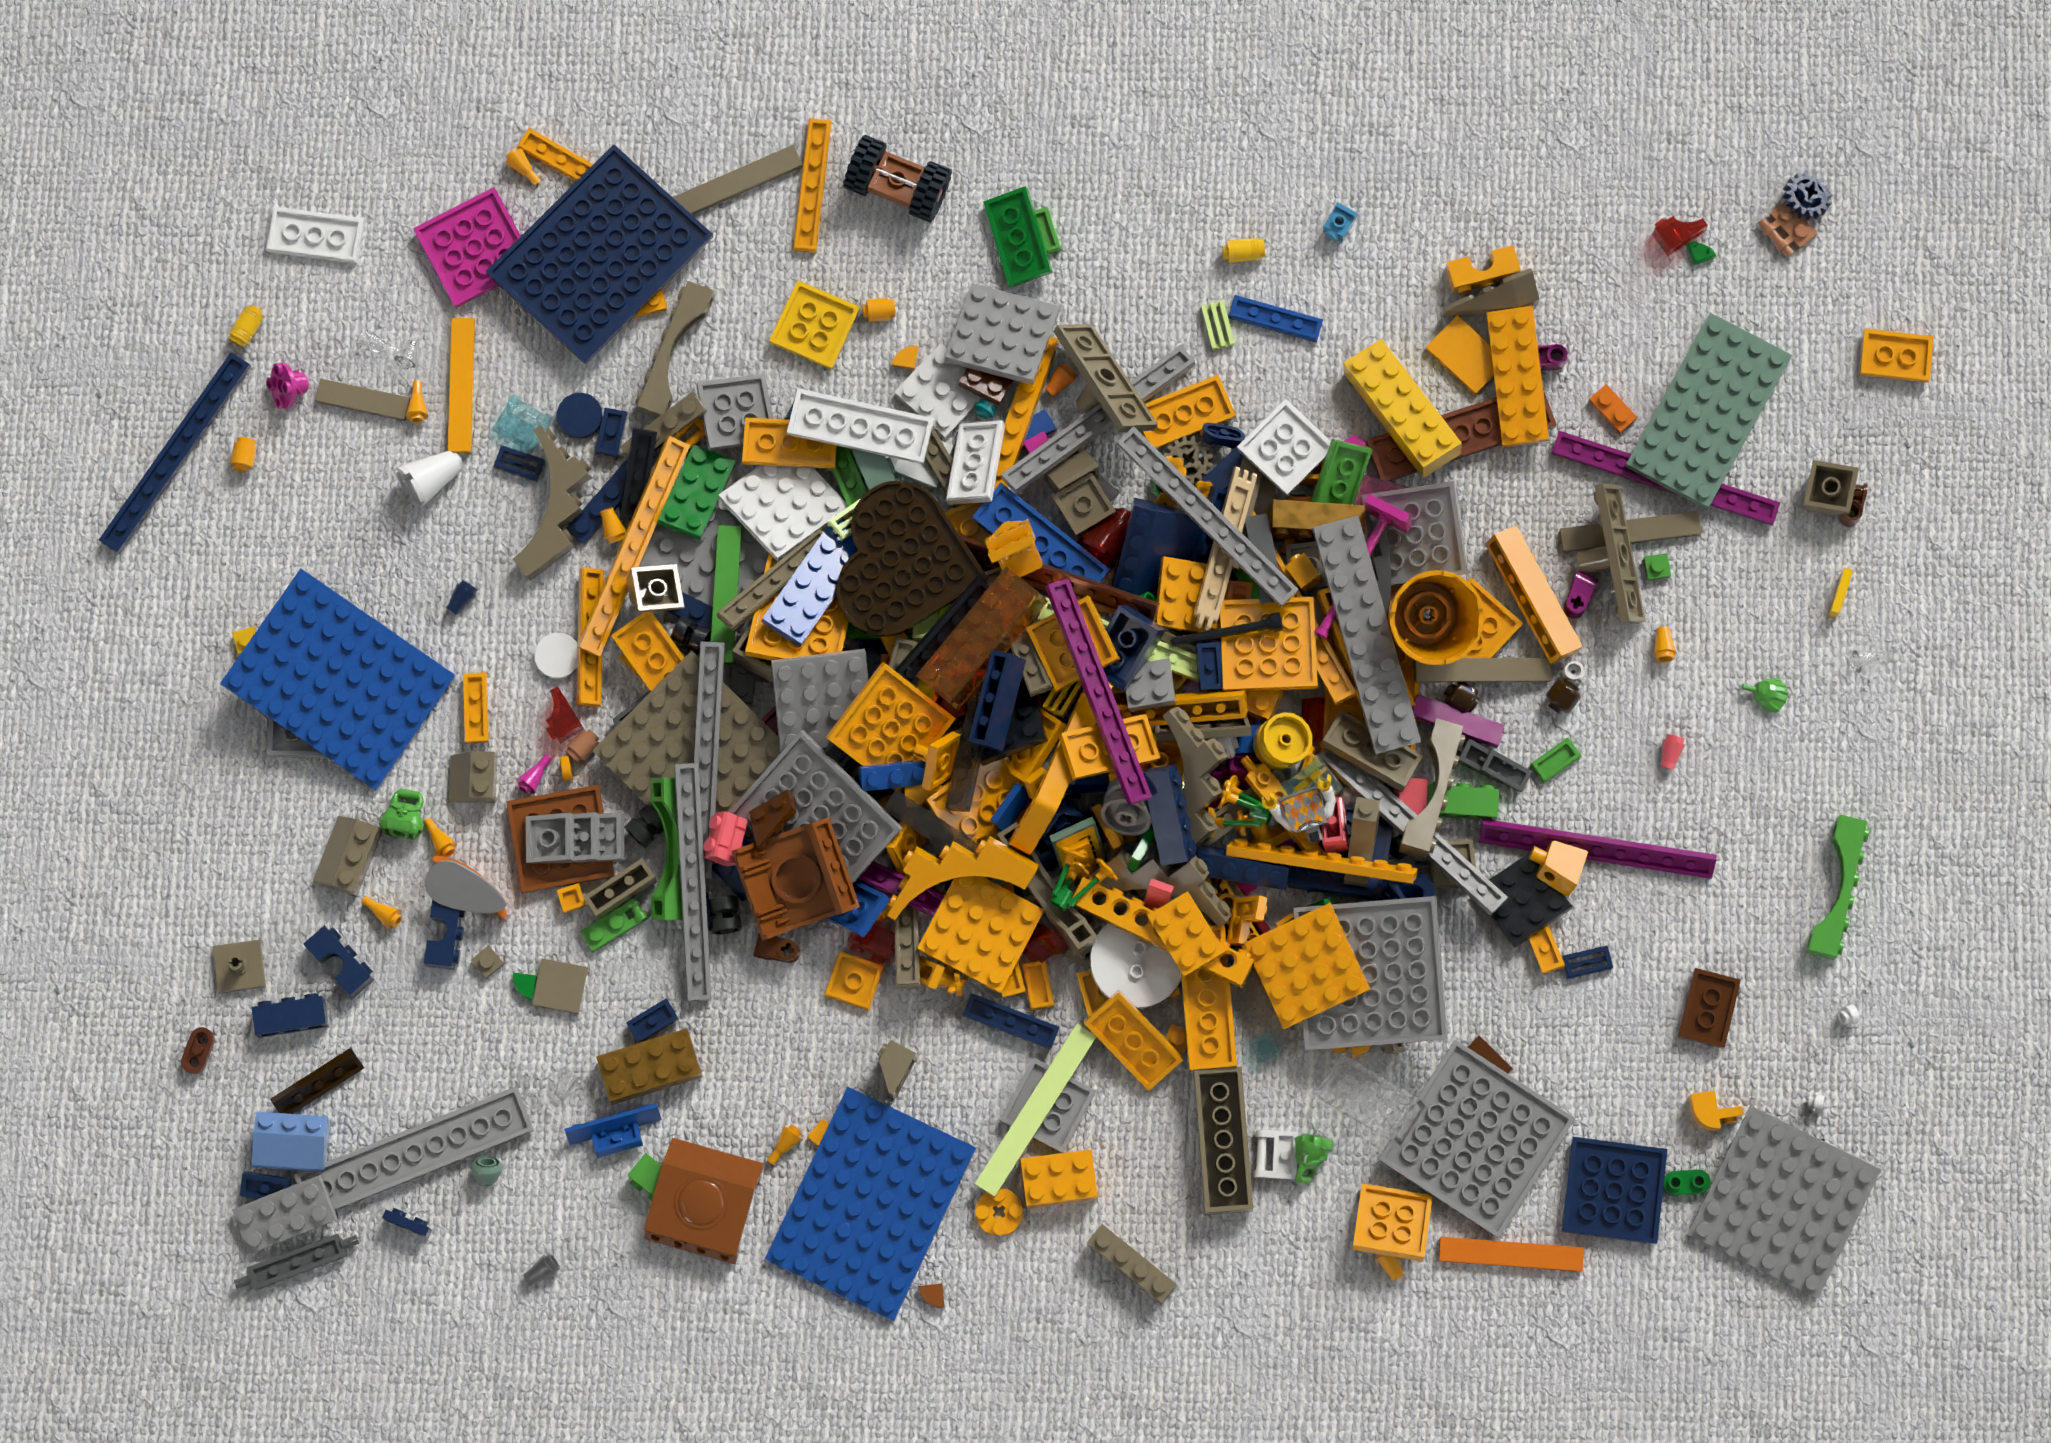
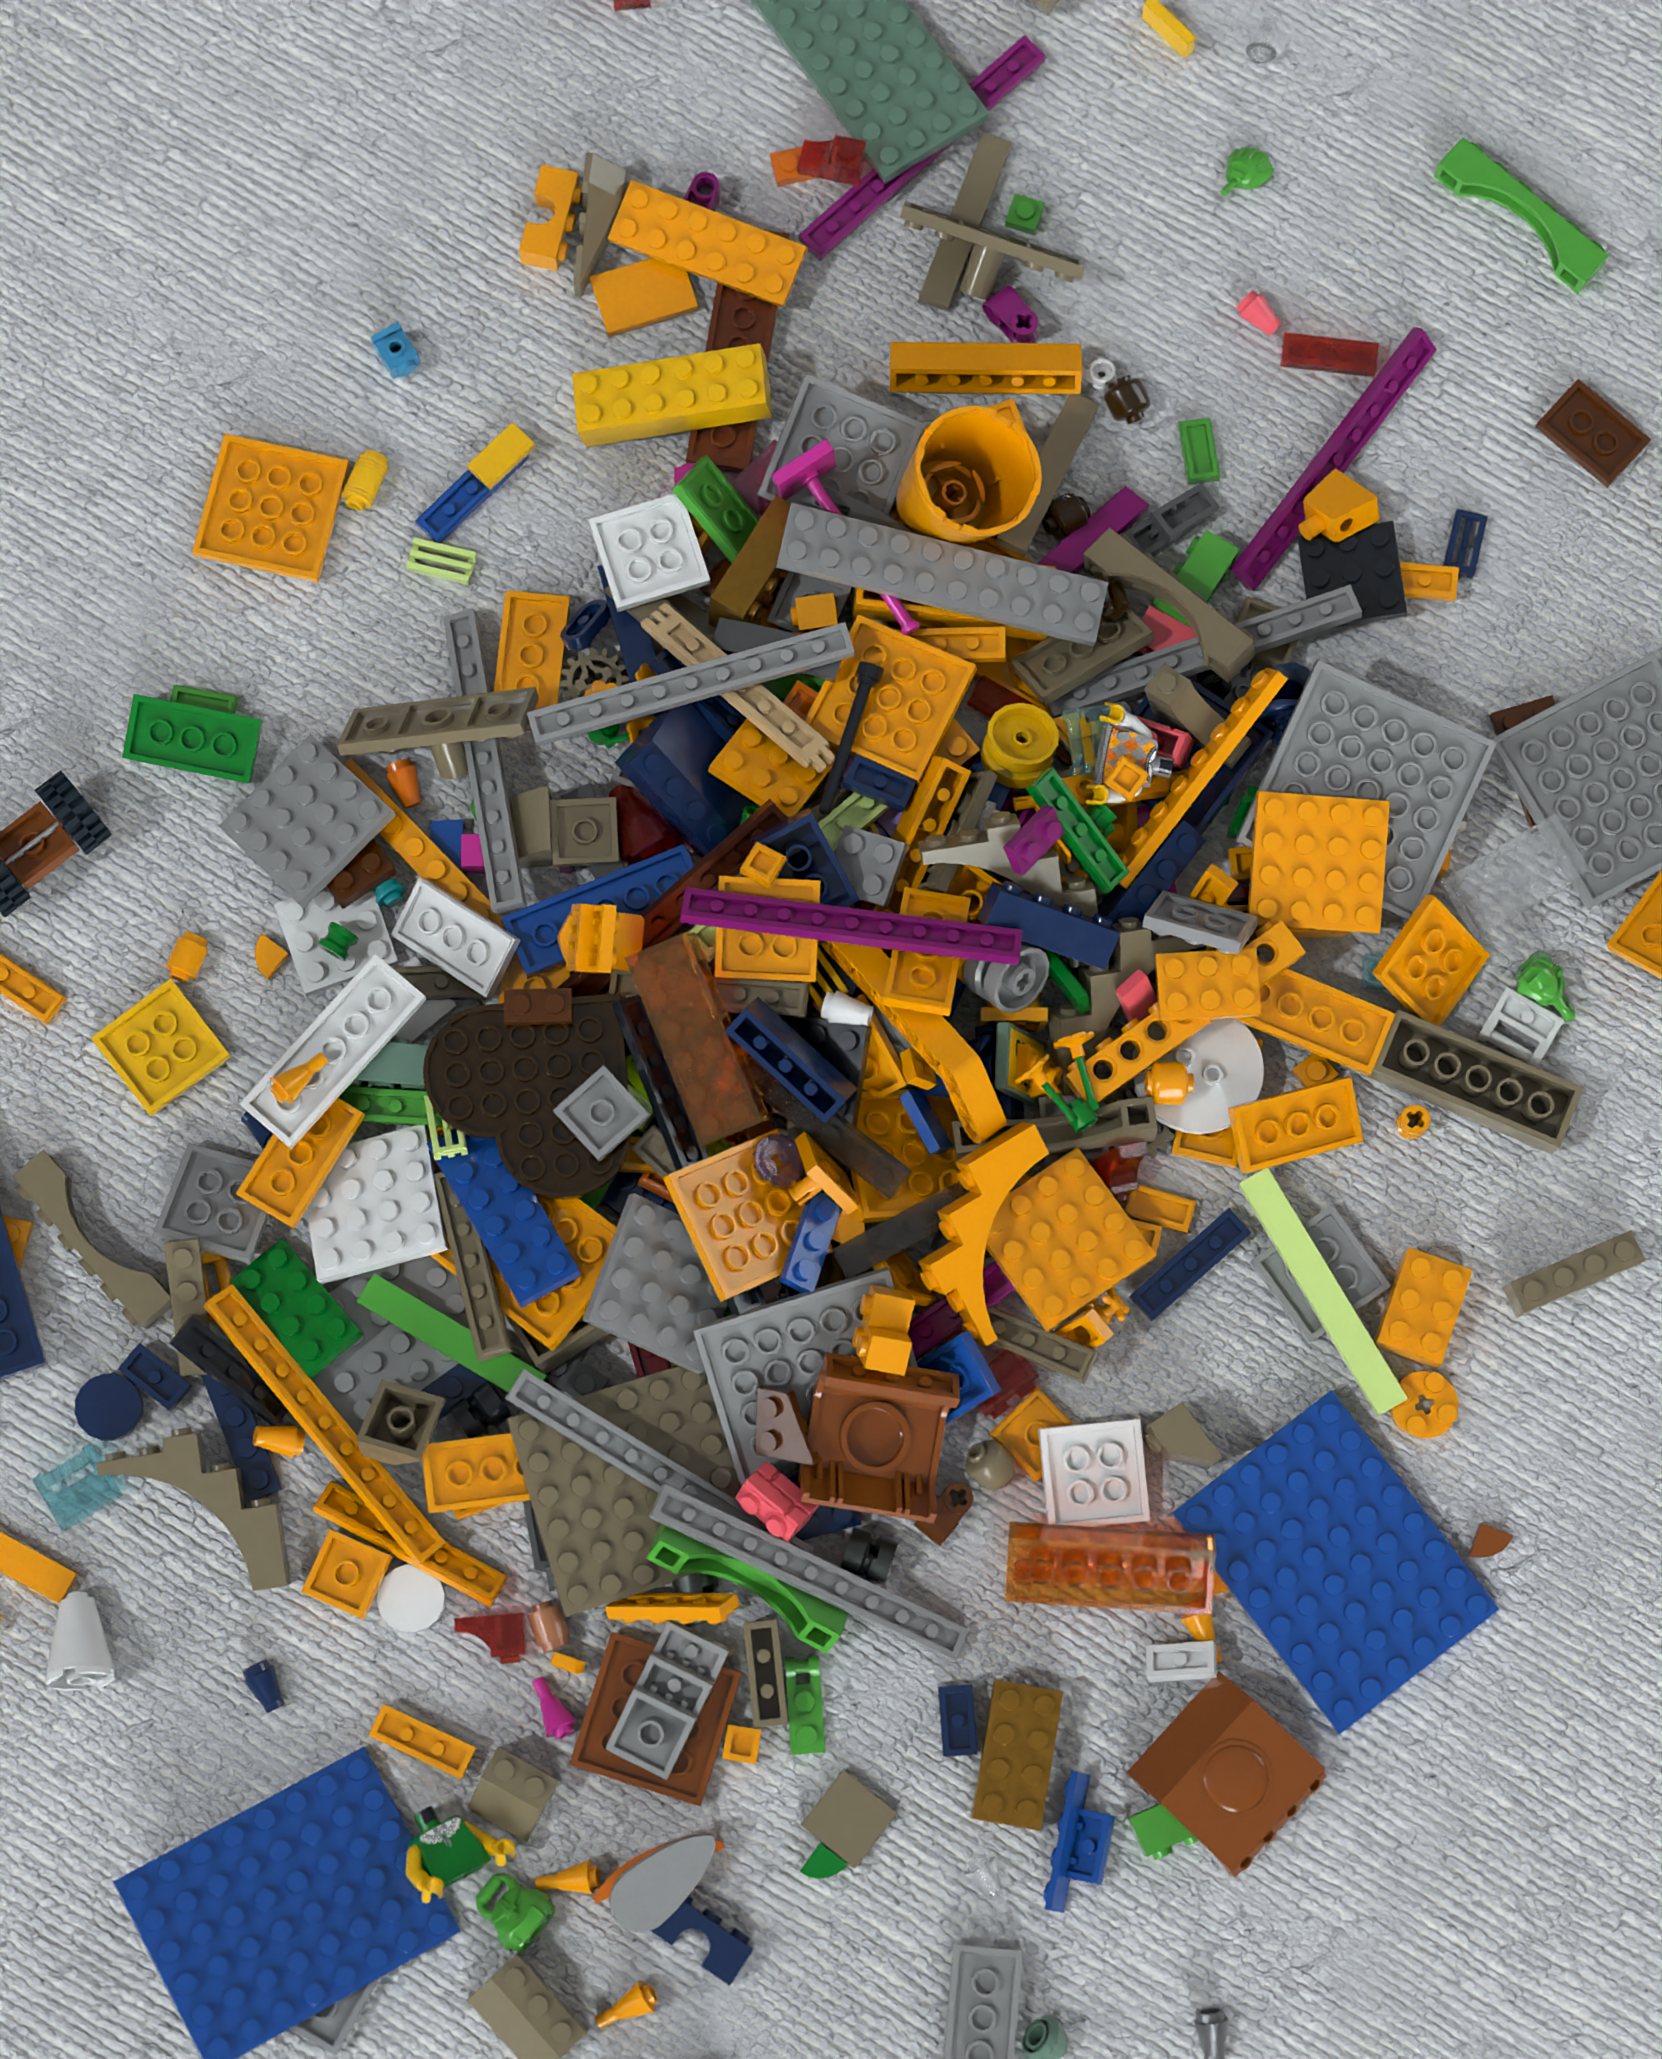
camera: 65 degrees left, 0 degrees up
(242, 638) = (160, 2007): yellow plate -> none
(417, 757) = (449, 1852): none -> torso
(487, 962) = (767, 1898): dark tan plate -> none
(533, 477) = (138, 1527): dark blue tile -> none
(552, 609) = (347, 1574): none -> light orange plate
(630, 810) = (674, 1606): none -> light orange plate
(758, 1138) = (1181, 1661): none -> white plate
(791, 1063) = (1110, 1568): none -> clear orange brick
(819, 960) = (990, 1465): none -> dark tan head
(825, 411) = (290, 1083): none -> light orange cone
(846, 1026) = (1094, 1473): none -> white plate
(853, 846) = (883, 1335): none -> light orange brick
(904, 605) = (601, 1113): none -> light grey plate
(935, 393) = (338, 941): none -> green wheel
(939, 718) = (788, 1154): none -> gear
(952, 532) = (537, 1006): none -> reddish brown plate
(1048, 718) = (845, 1009): none -> white cone
(1108, 618) = (763, 864): none -> light orange tile
(1113, 944) = (1168, 1083): none -> light orange head
(1172, 1109) = (1421, 1125): none -> light orange bush
(1194, 203) = (271, 508): none -> light orange plate
(1214, 775) = (1033, 839): none -> magenta plate
(1224, 909) = (1200, 922): none -> light grey plate
(1240, 801) = (1079, 830): none -> green tile
(1284, 1074) = (1431, 962): none -> light orange plate
(1290, 814) = (1125, 778): none -> light orange tile
(1305, 324) = (501, 456): none -> yellow tile
(1407, 756) = (1118, 604): none -> dark brown arm
(1620, 425) = (834, 159): none -> clear red arch
(1664, 646) = (1125, 254): light orange cone -> none
(1668, 810) = (1329, 354): none -> clear red plate

